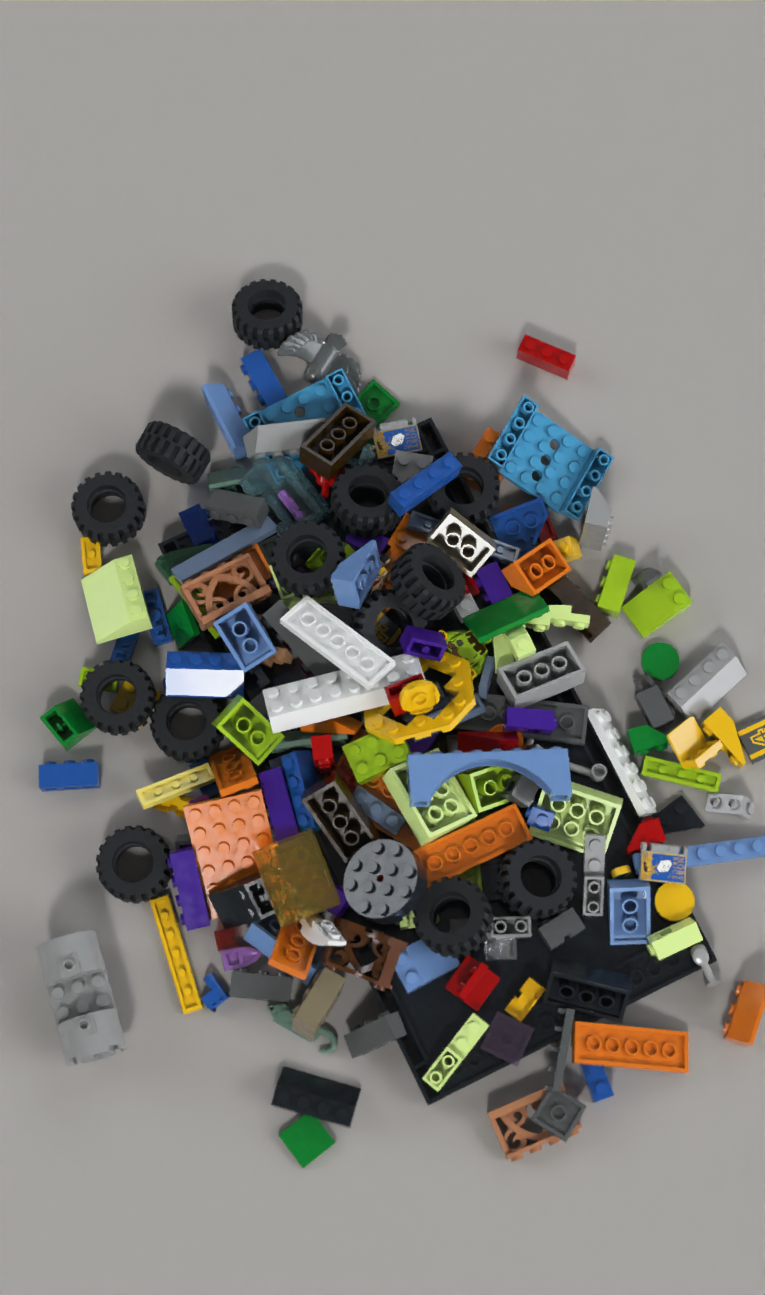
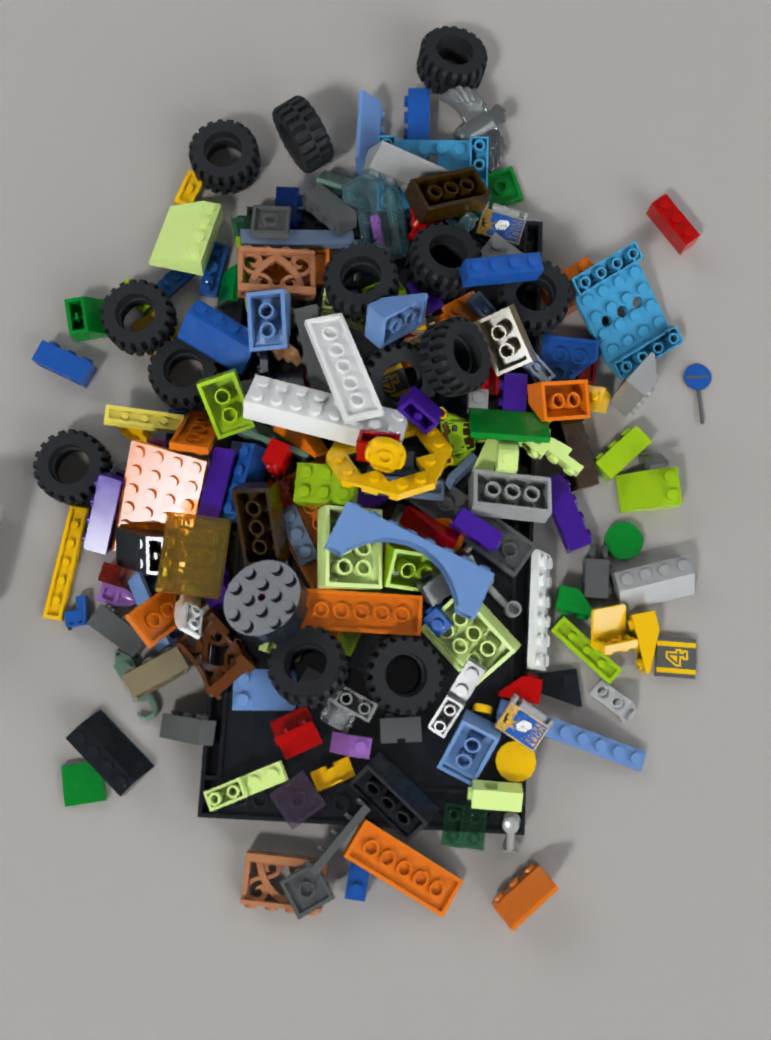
camera: 25 degrees right, 5 degrees up
(194, 548) = (270, 222): none -> dark grey tile
(526, 966) = (351, 745): none -> medium lavender slope
(600, 667) = (566, 515): none -> dark purple brick
(644, 483) = (698, 378): none -> blue piece
(662, 980) = (464, 826): none -> clear green slope

